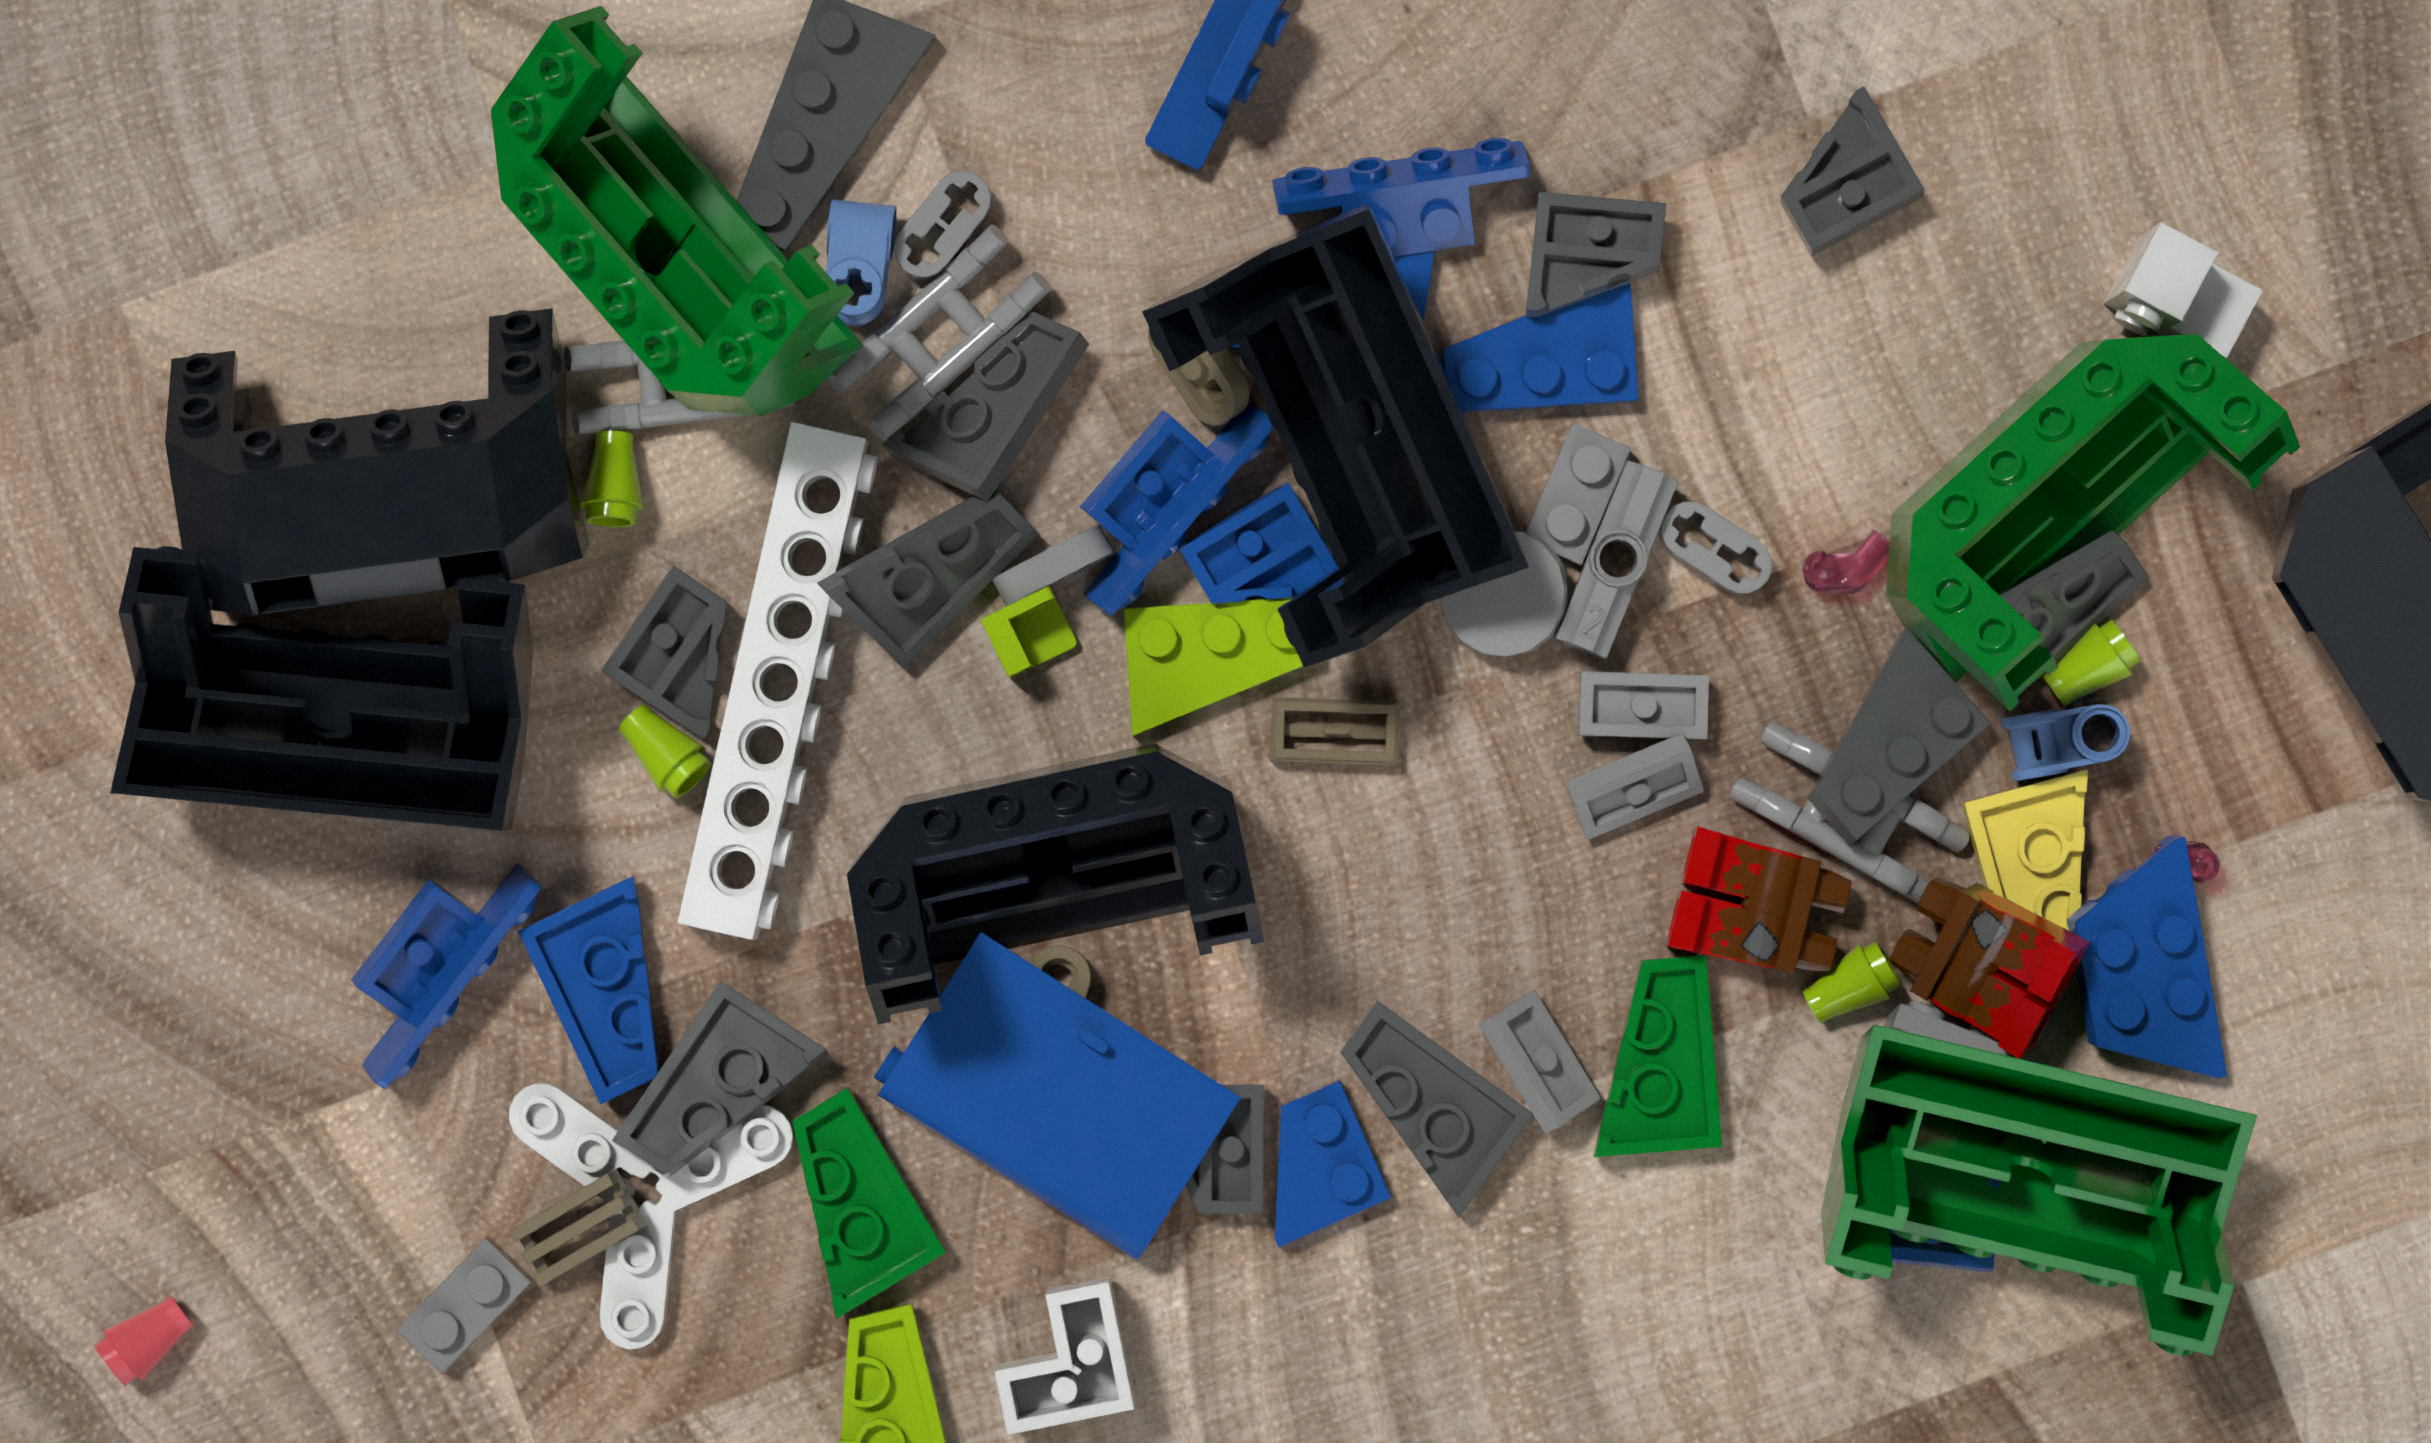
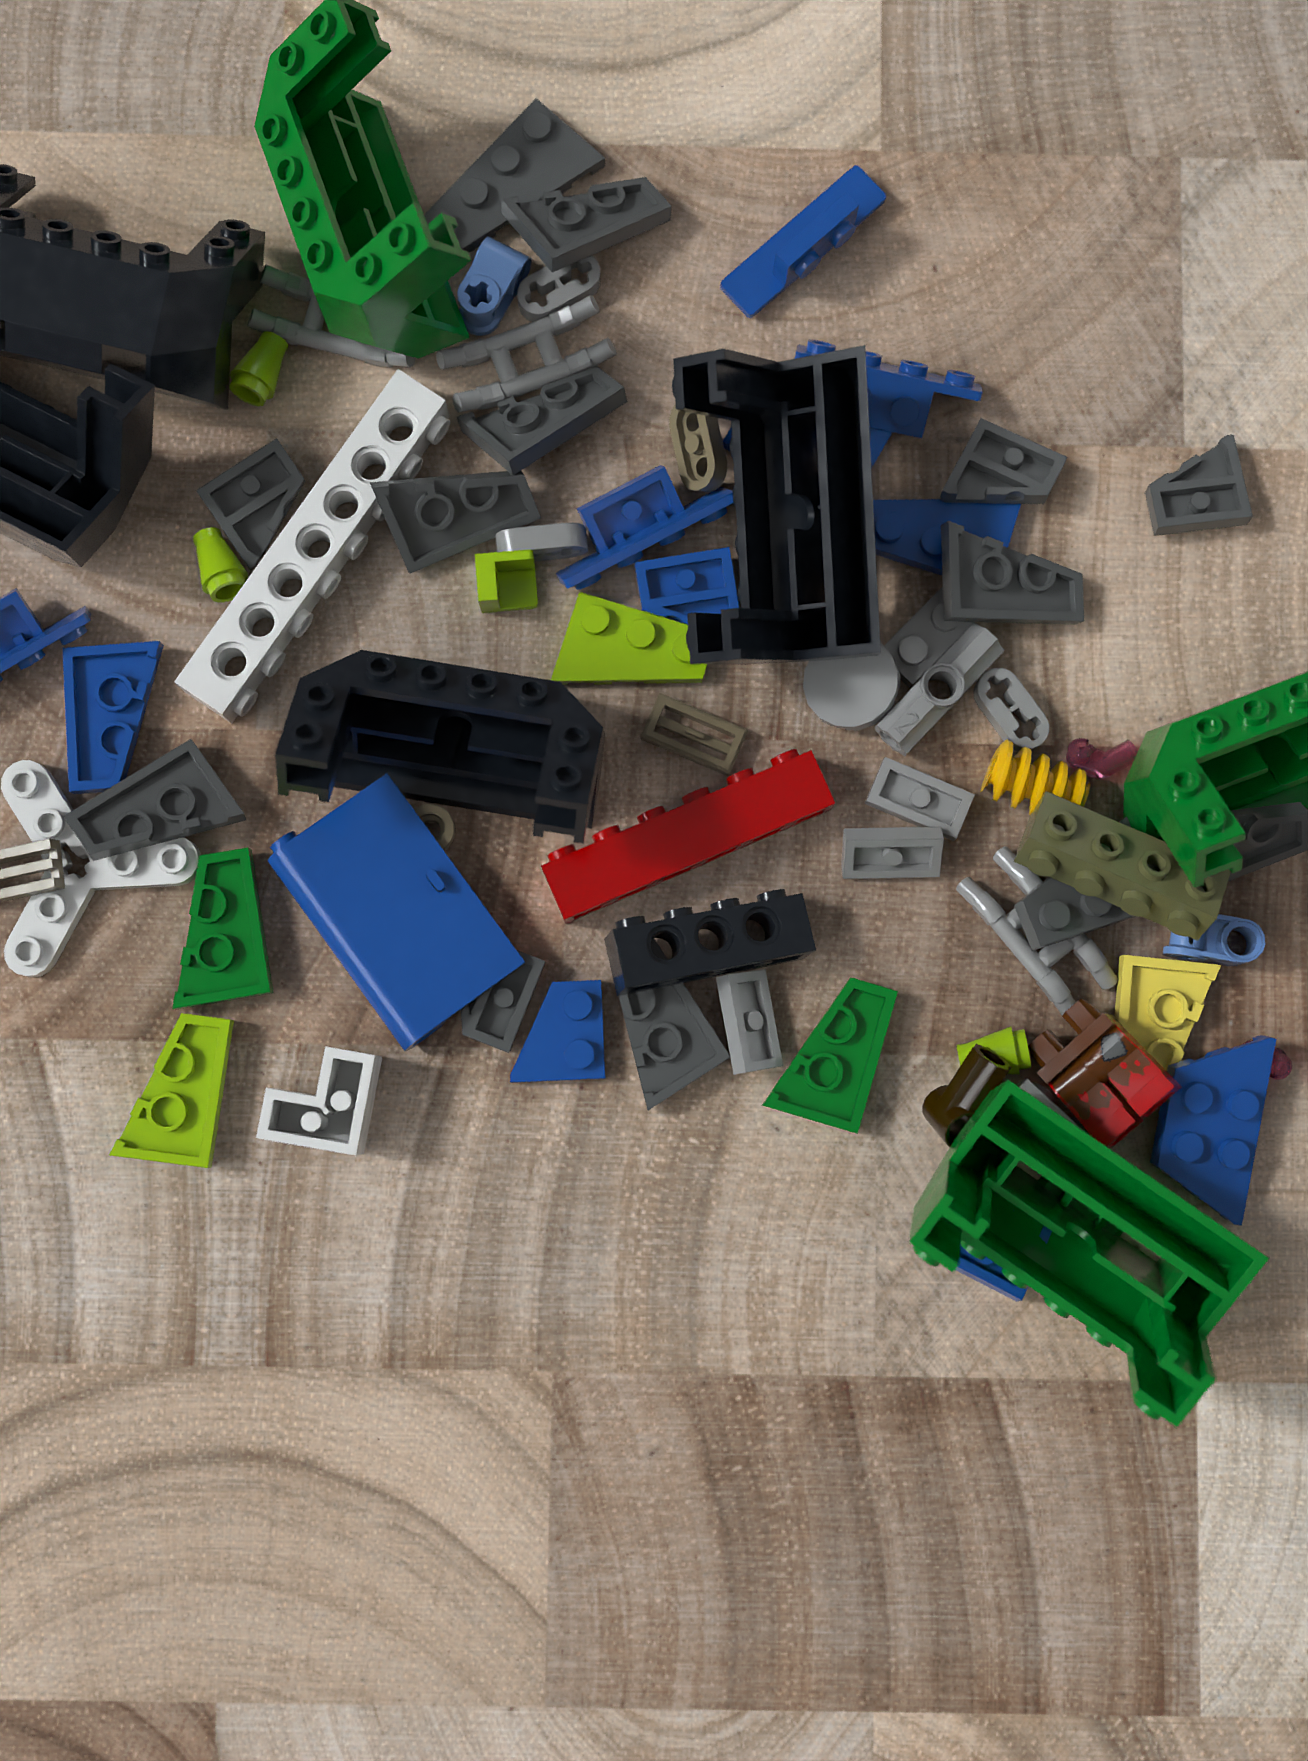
camera: 10 degrees right, 5 degrees down
(946, 135) = (583, 224): none -> dark grey wing
(1378, 864) = (688, 835): none -> red brick
(1544, 944) = (638, 969): none -> black brick
(1647, 398) = (1005, 586): none -> dark grey wing
(1773, 909) = (962, 969): reddish brown hips -> none
(1780, 632) = (1032, 780): none -> yellow piece
(1825, 1065) = (953, 1105): none -> dark brown piece
(1909, 705) = (1117, 866): none -> olive brick
(2093, 663) = (1255, 891): lime cone -> none

